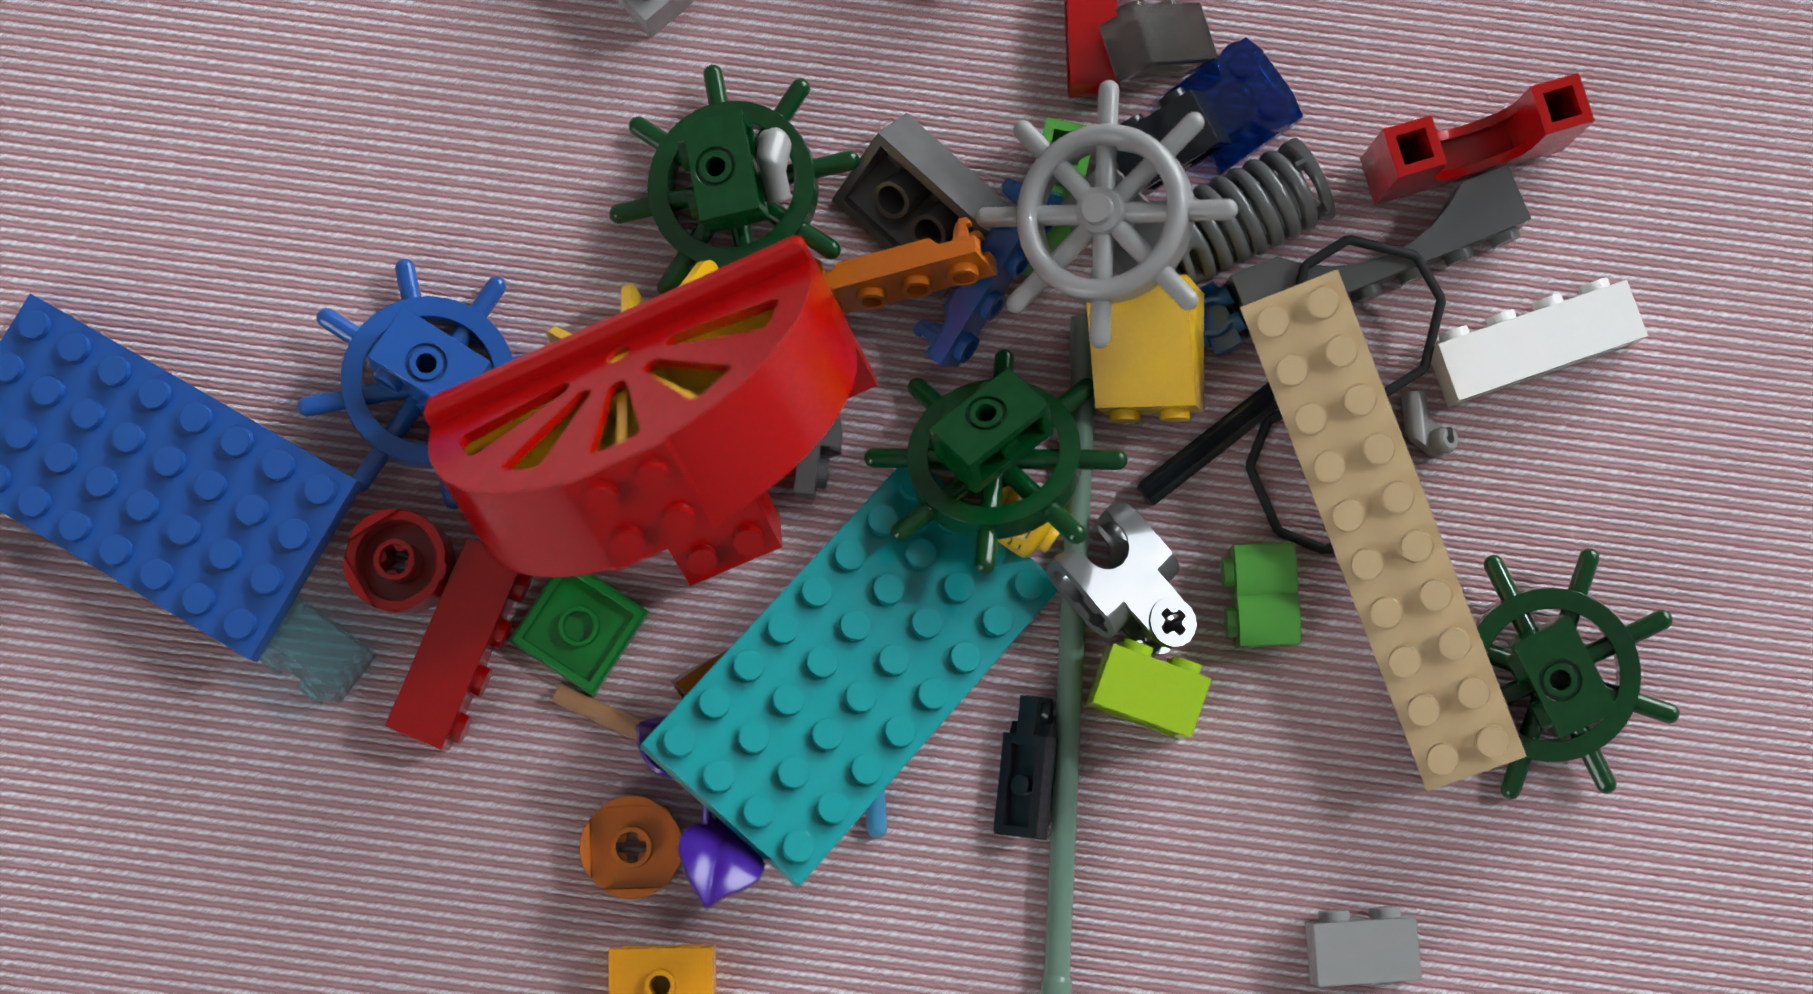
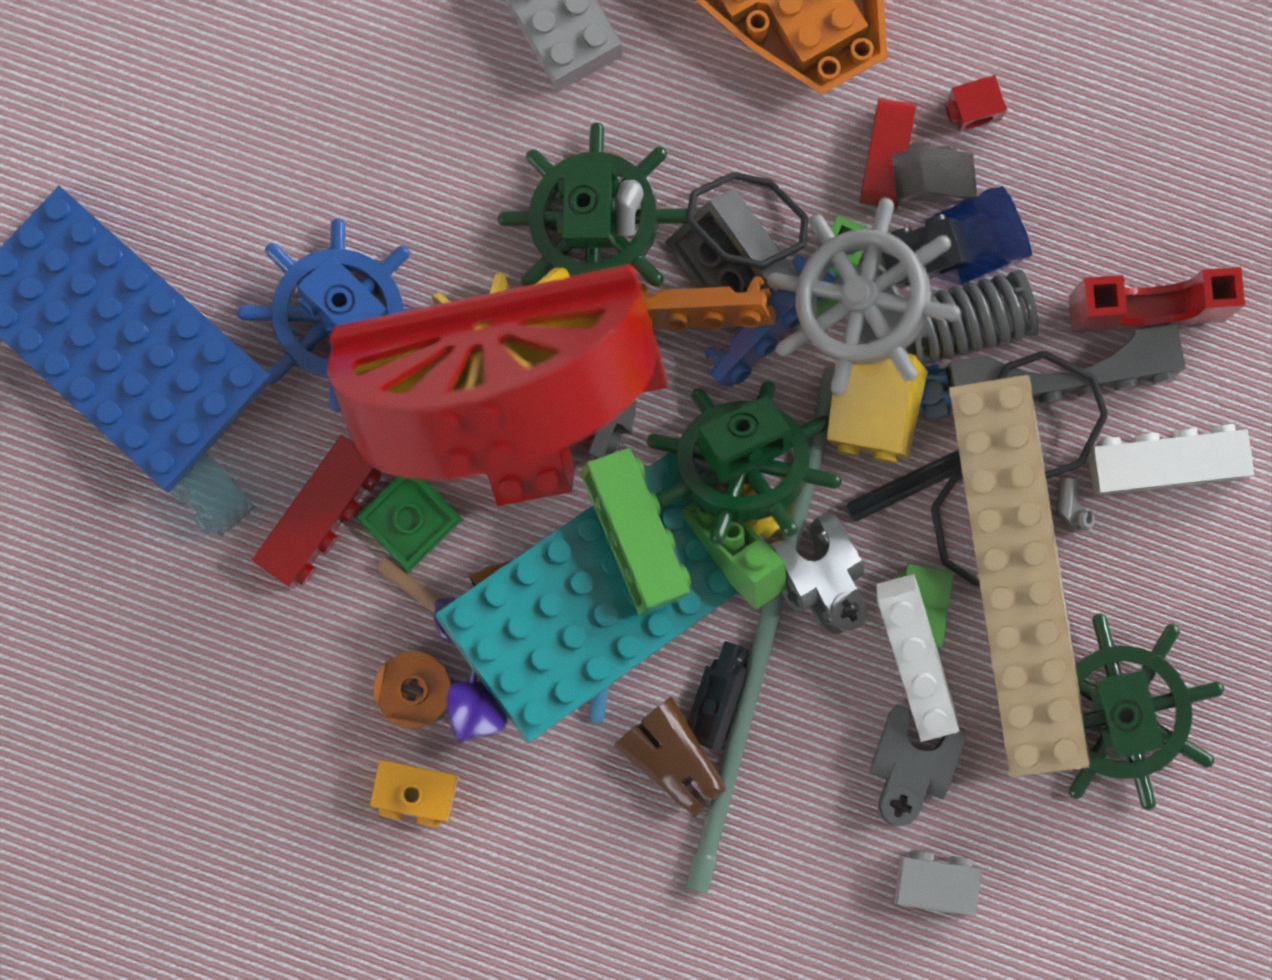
camera: 20 degrees right, 0 degrees up
(372, 553) = (268, 433): red brick -> none
(877, 579) = (635, 531): none -> bright green brick
(931, 201) = (738, 259): none -> black piece
(987, 861) = (672, 757): none -> reddish brown piece
(1022, 585) = (742, 557): none -> bright green slope
(1149, 690) = (820, 657): lime brick -> none
(1274, 663) = (917, 657): none -> white brick
(1297, 810) = (912, 771): none -> dark grey piece

